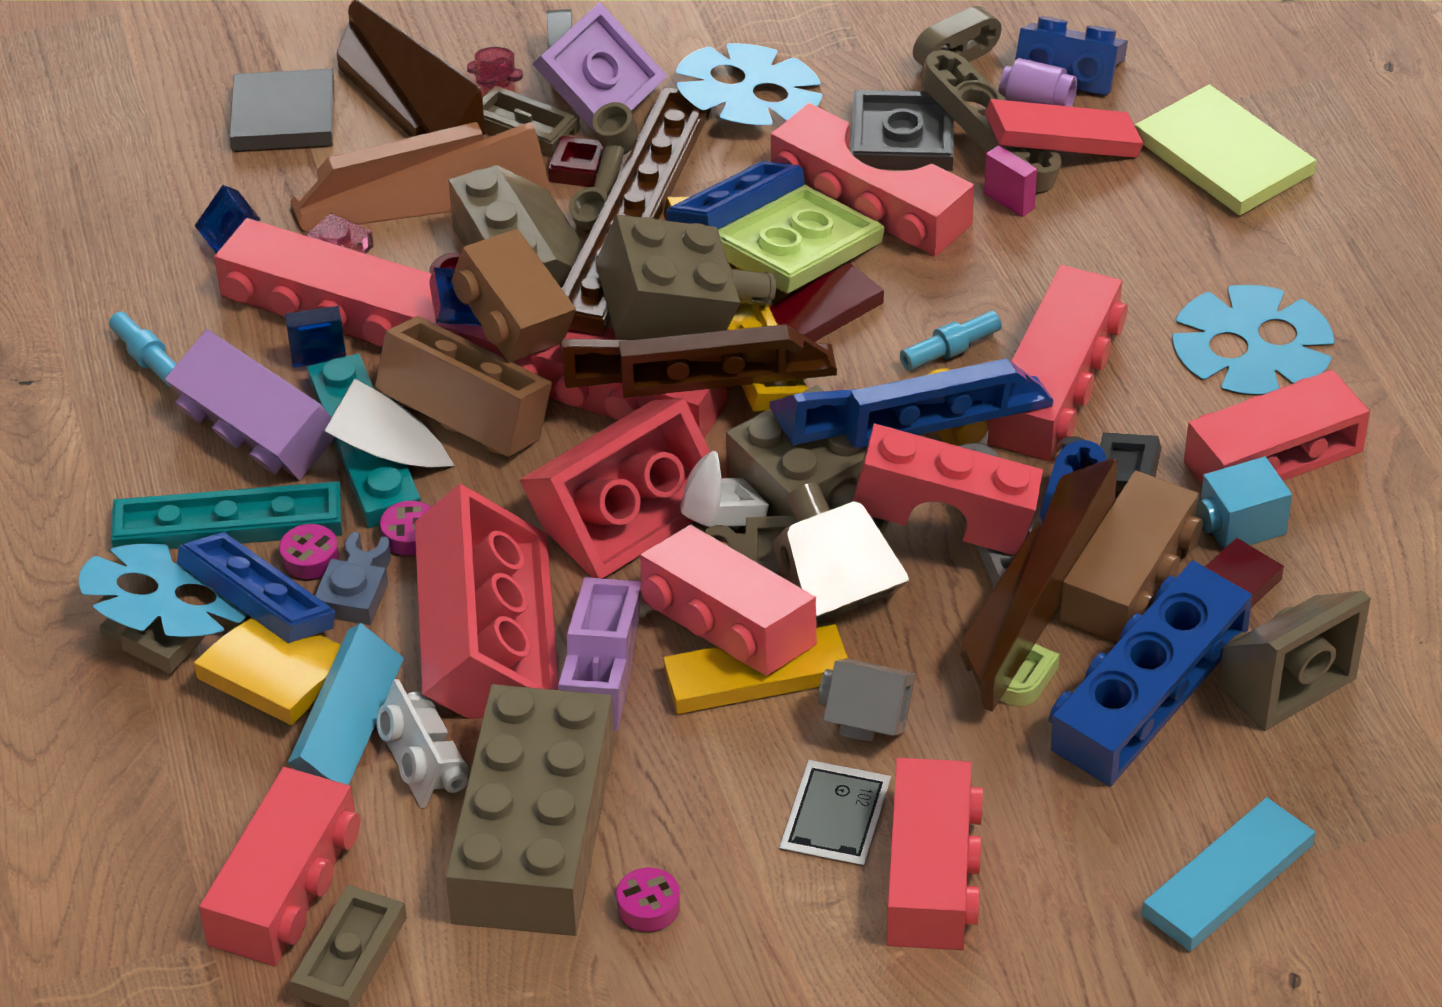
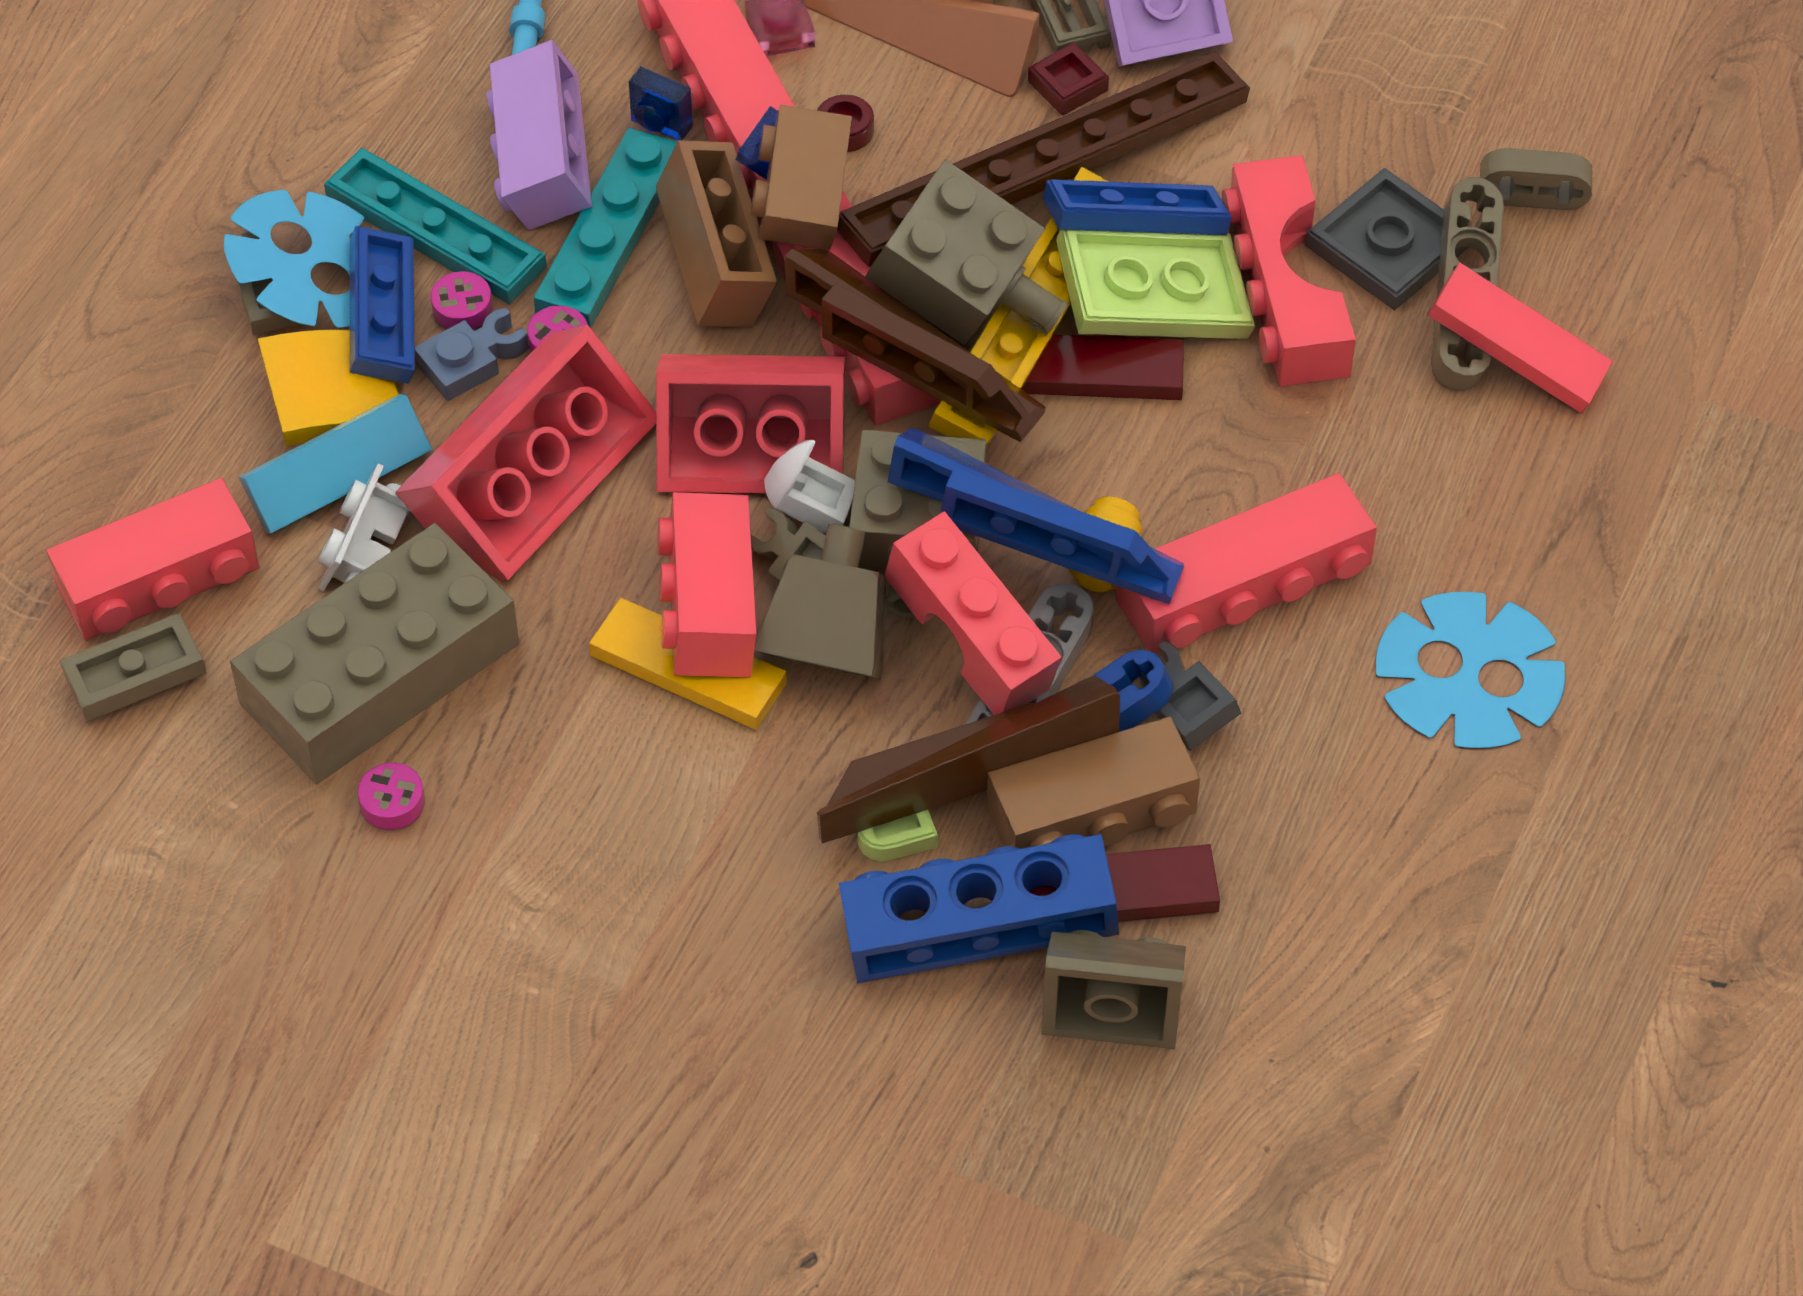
camera: 40 degrees right, 10 degrees up
(385, 429) = (620, 231): white sticker -> none
(501, 201) = (925, 108): dark tan slope -> none
(603, 640) = (578, 554): lavender slope -> none
(617, 135) = (1109, 71): dark tan bar -> none
(740, 100) = (1268, 117): piece -> none
(835, 812) = (617, 834): sticker -> none
(866, 698) = (727, 755): light grey brick -> none
(933, 854) = (631, 925): coral brick -> none
(950, 340) = (1186, 478): medium azure bar -> none
(1010, 181) = (1415, 357): dark pink tile -> none
(1038, 83) = (1552, 280): lavender brick -> none
(1086, 54) = (1628, 263): blue bracket -> none
(1225, 149) = (1666, 462): yellowish green tile -> none
(1228, 874) = (854, 1130): medium azure tile -> none
(1244, 503) = (1248, 817): medium azure brick -> none
(1291, 426) = (1355, 776): coral brick -> none

